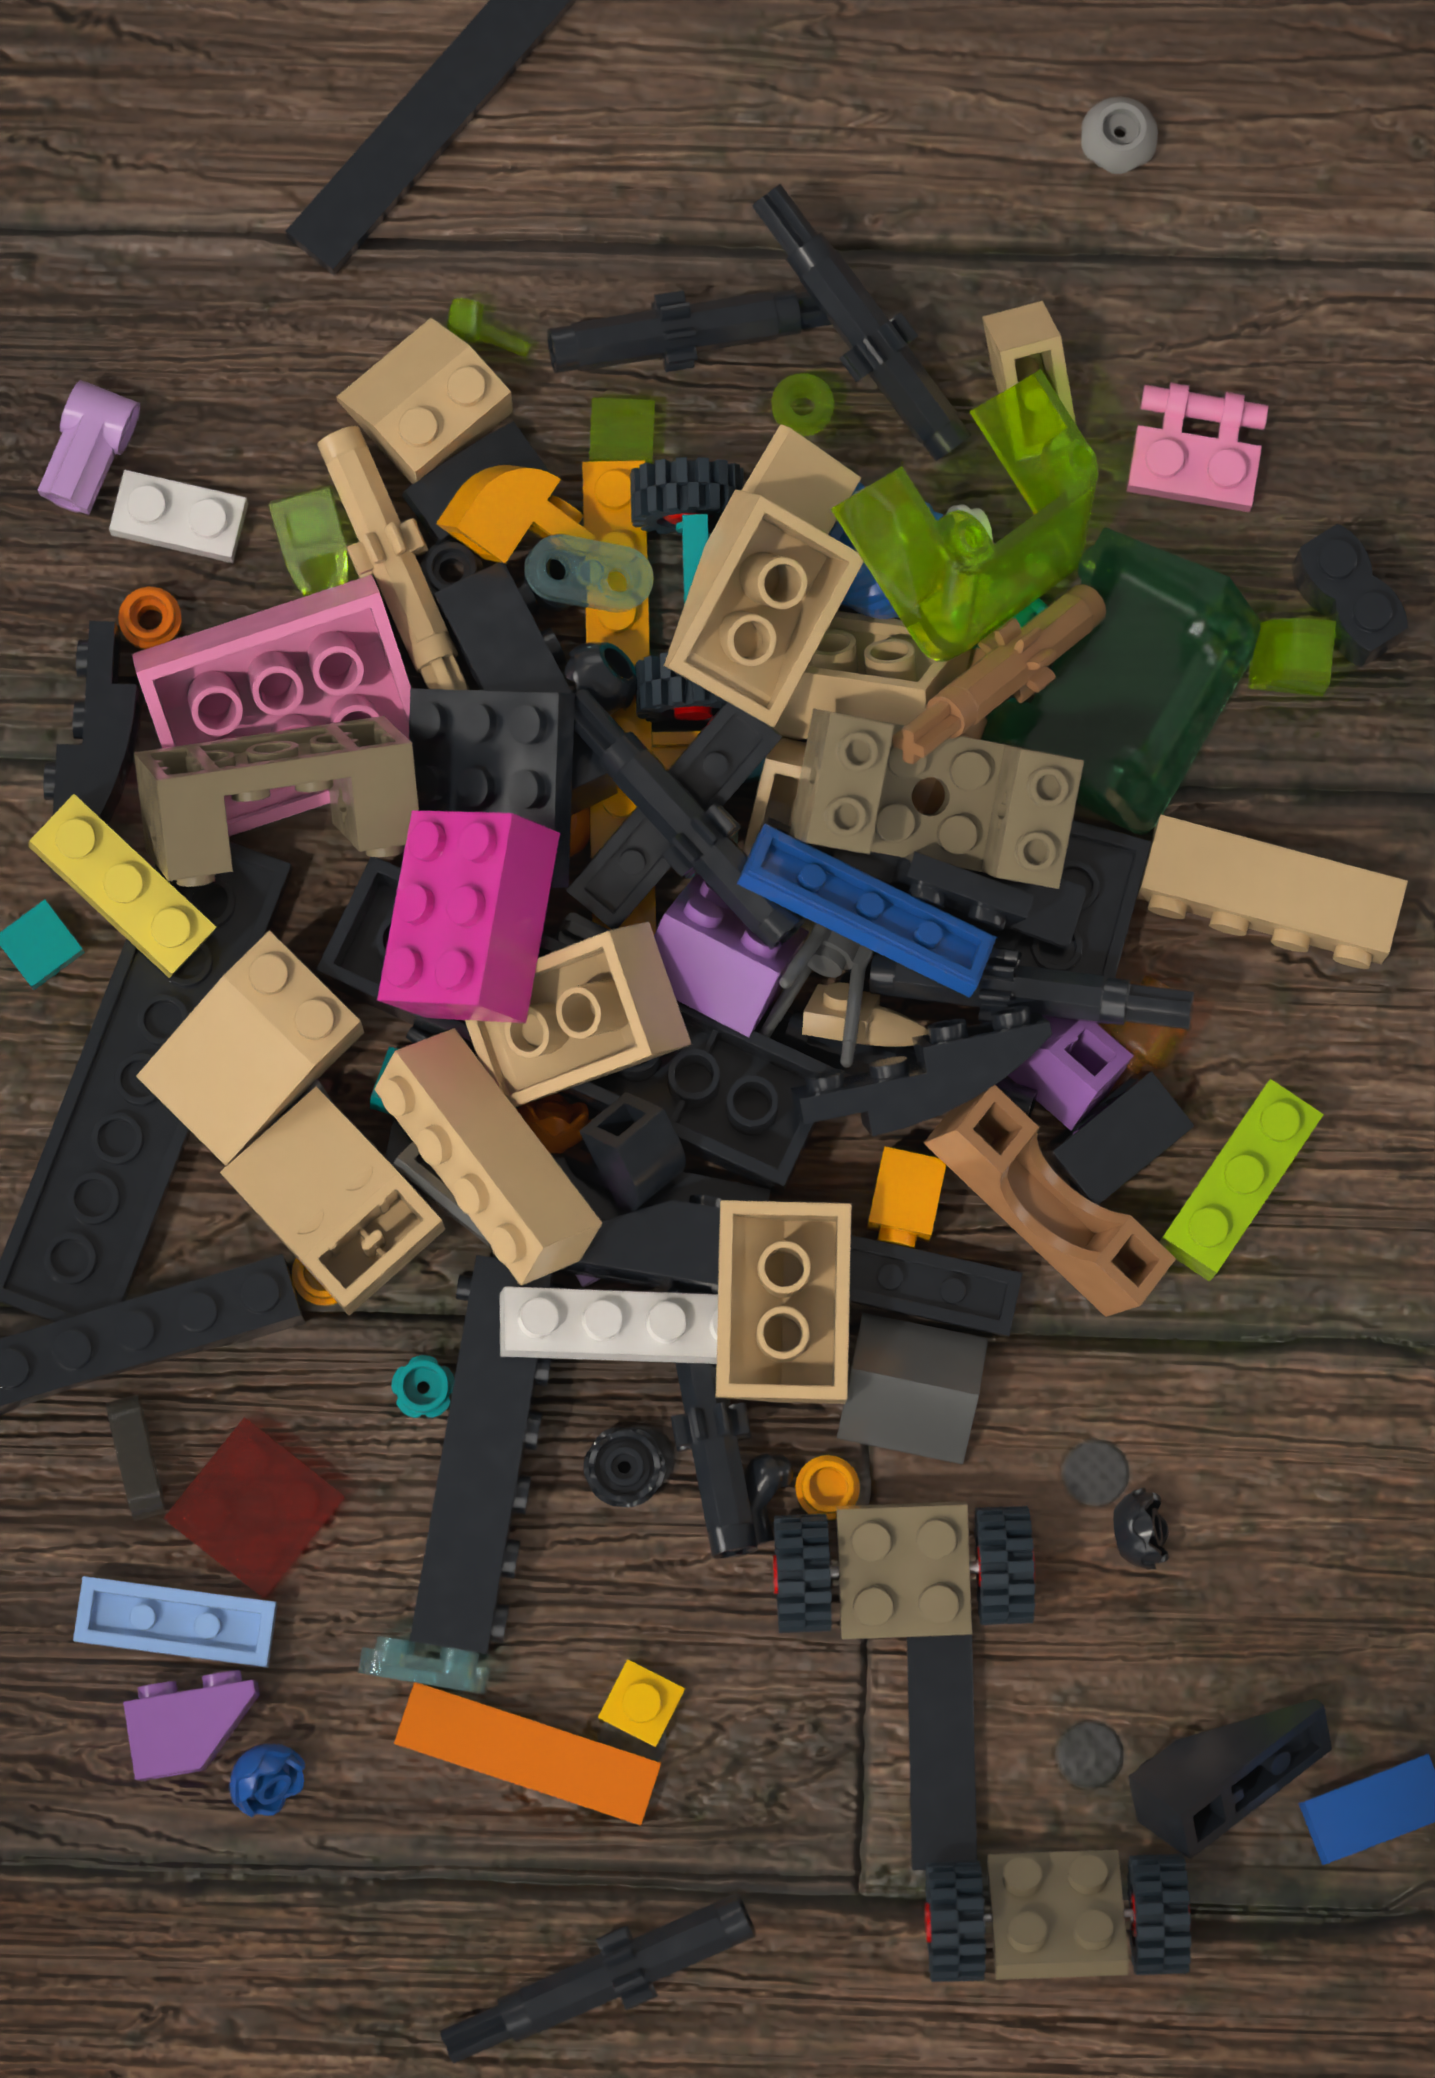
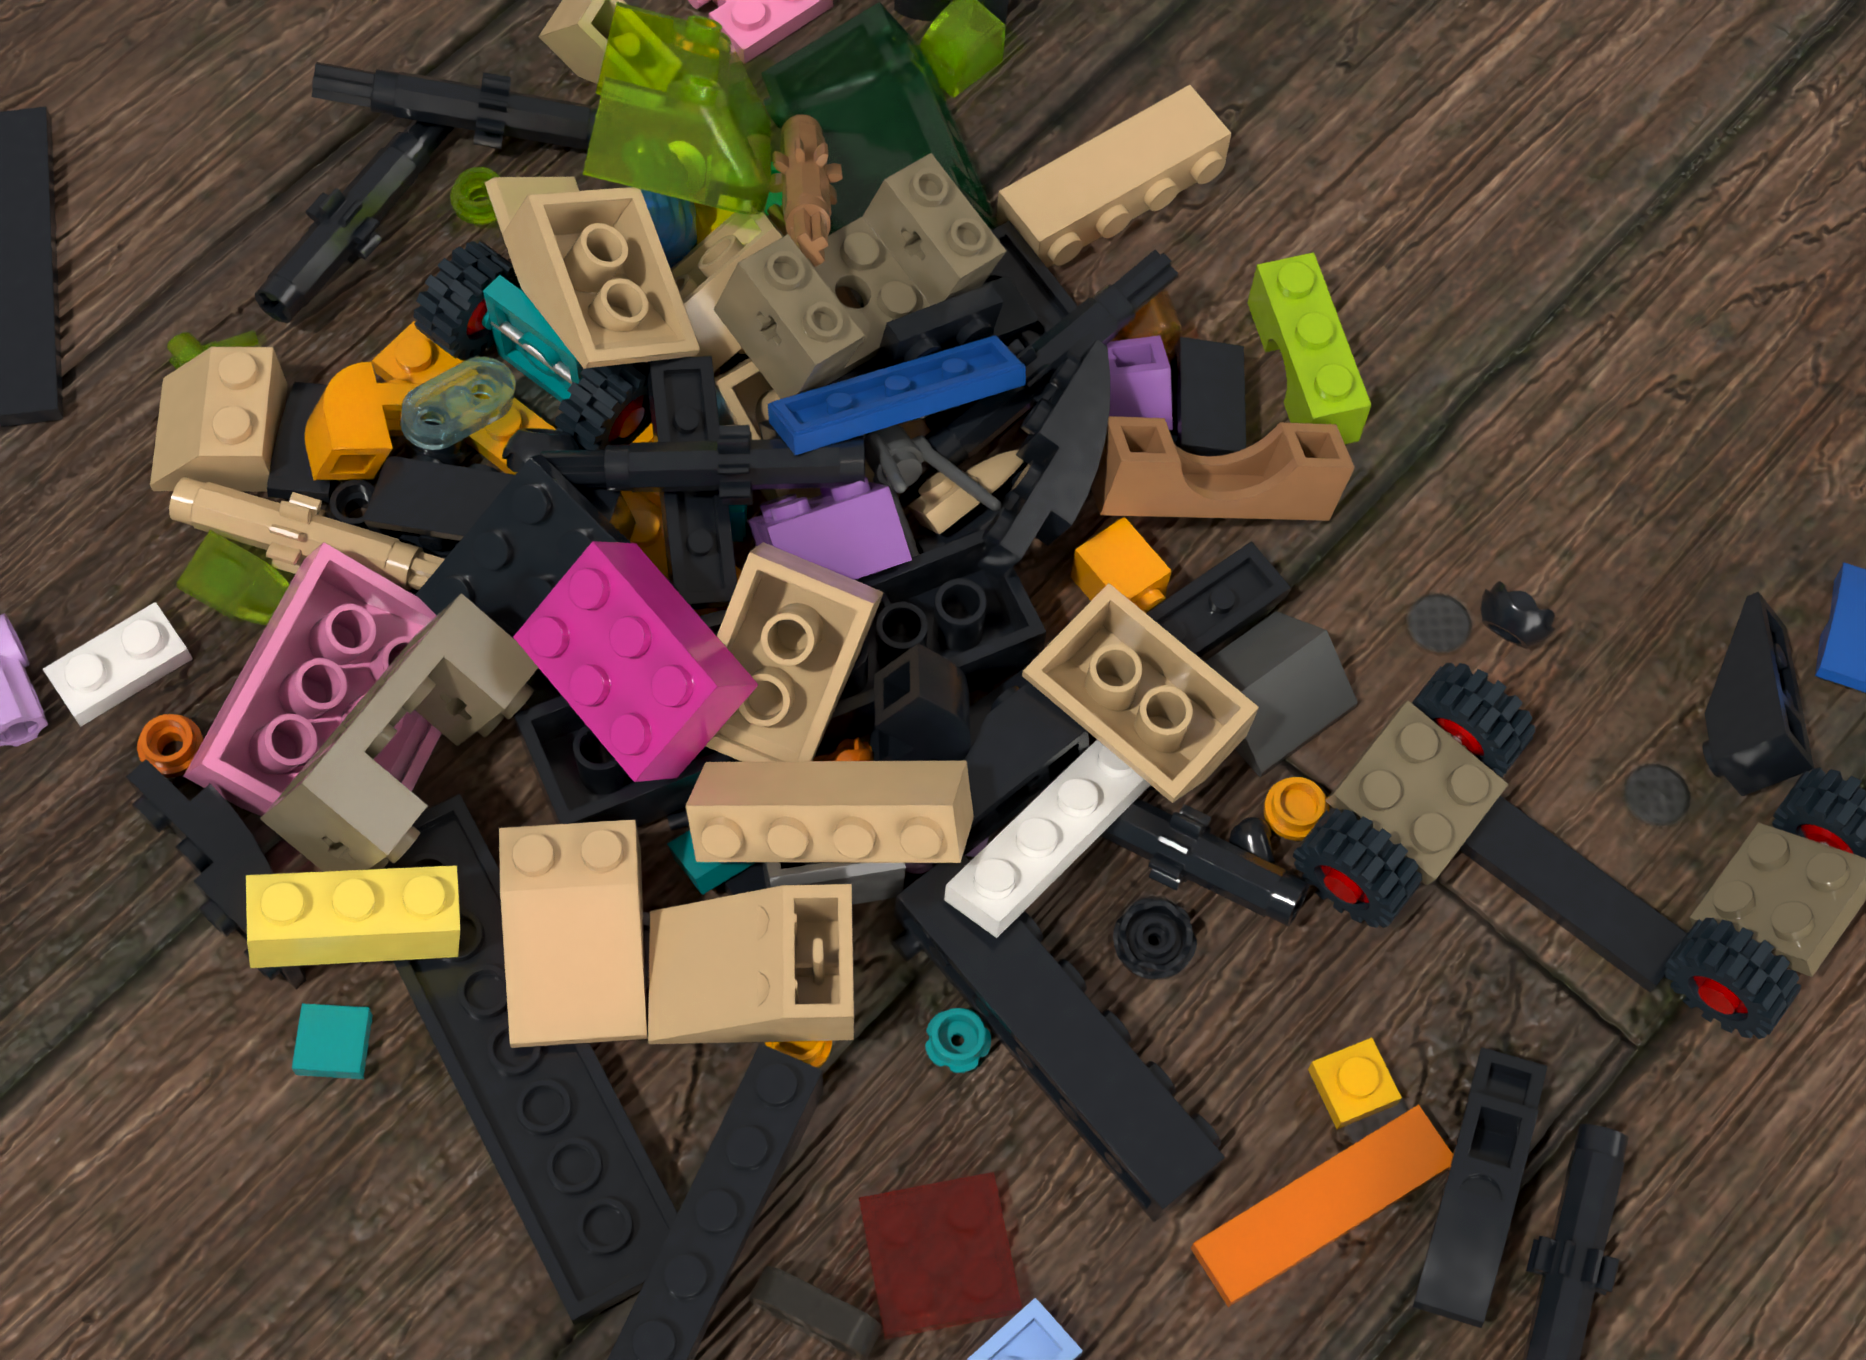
camera: 50 degrees left, 15 degrees down
(397, 1660) = (1166, 1241): clear light blue plate -> none
(622, 430) = (373, 321): clear neon green tile -> none
(633, 1854) = (1481, 1188): none -> black slope

